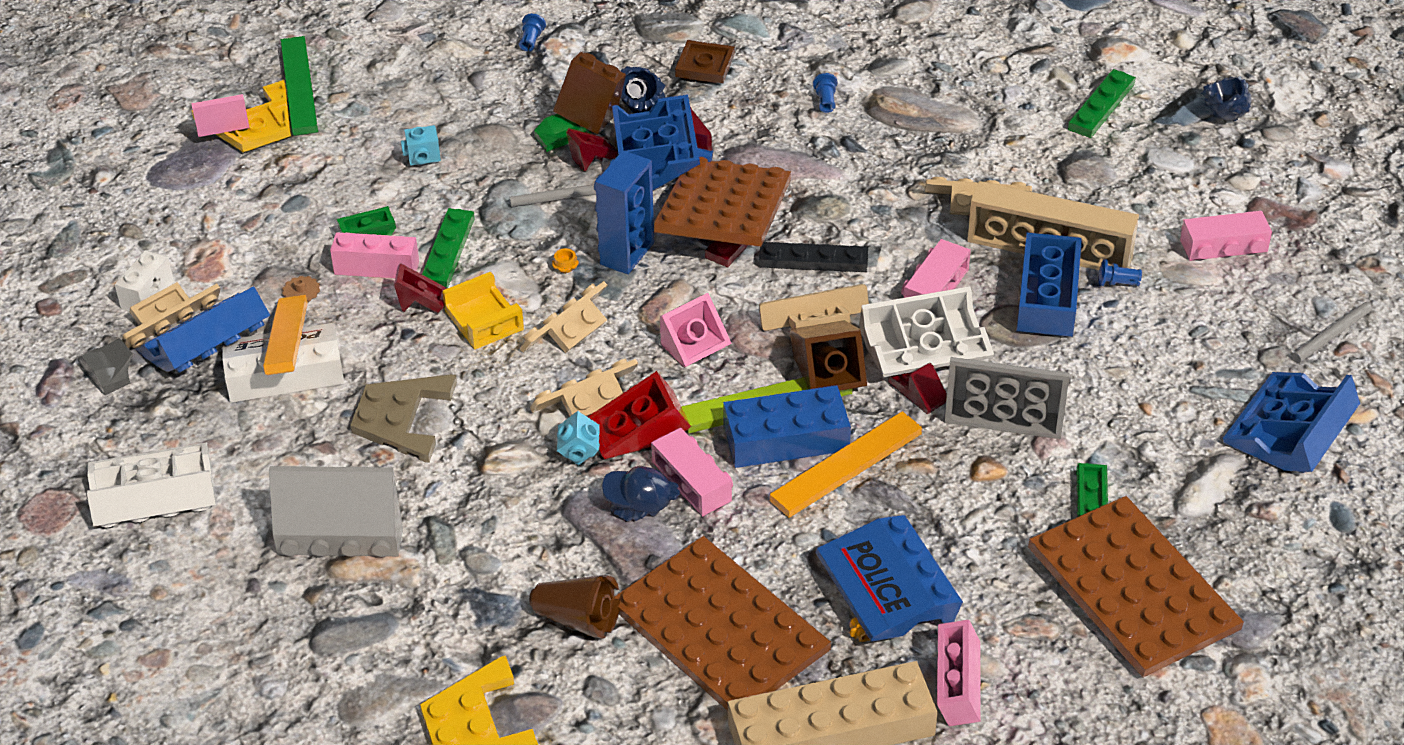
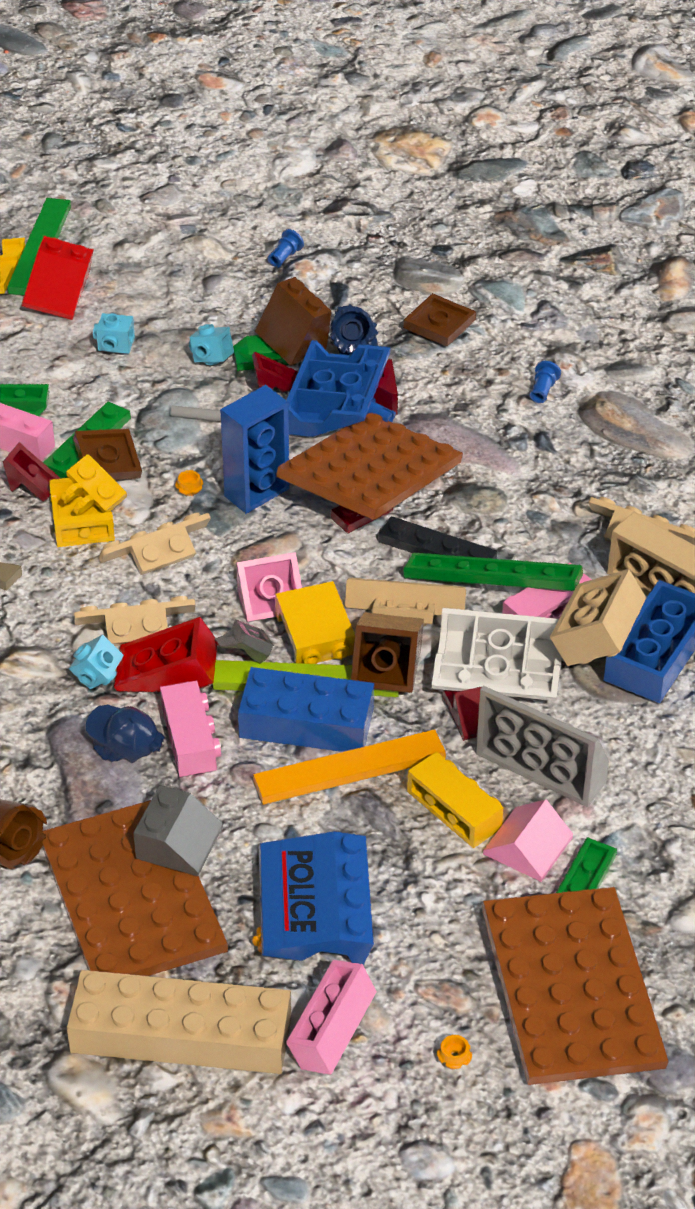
camera: 20 degrees right, 0 degrees up
(338, 108) = (58, 277): none -> red slope
(479, 253) = (111, 450): none -> reddish brown plate
(489, 283) = (95, 484): none -> yellow hinge
(516, 133) = (211, 344): none -> medium azure brick
(703, 380) = (249, 638): none -> dark grey slope
(741, 560) = (176, 831): none -> dark grey slope
(752, 349) = (315, 623): none -> yellow panel
(879, 264) = (493, 571): none -> green tile
(953, 464) = (455, 799): none -> yellow brick
(999, 277) = (598, 618): none -> tan brick
(1031, 478) = (530, 839): none -> bright pink slope
(1069, 664) = (458, 1045): none -> light orange plate

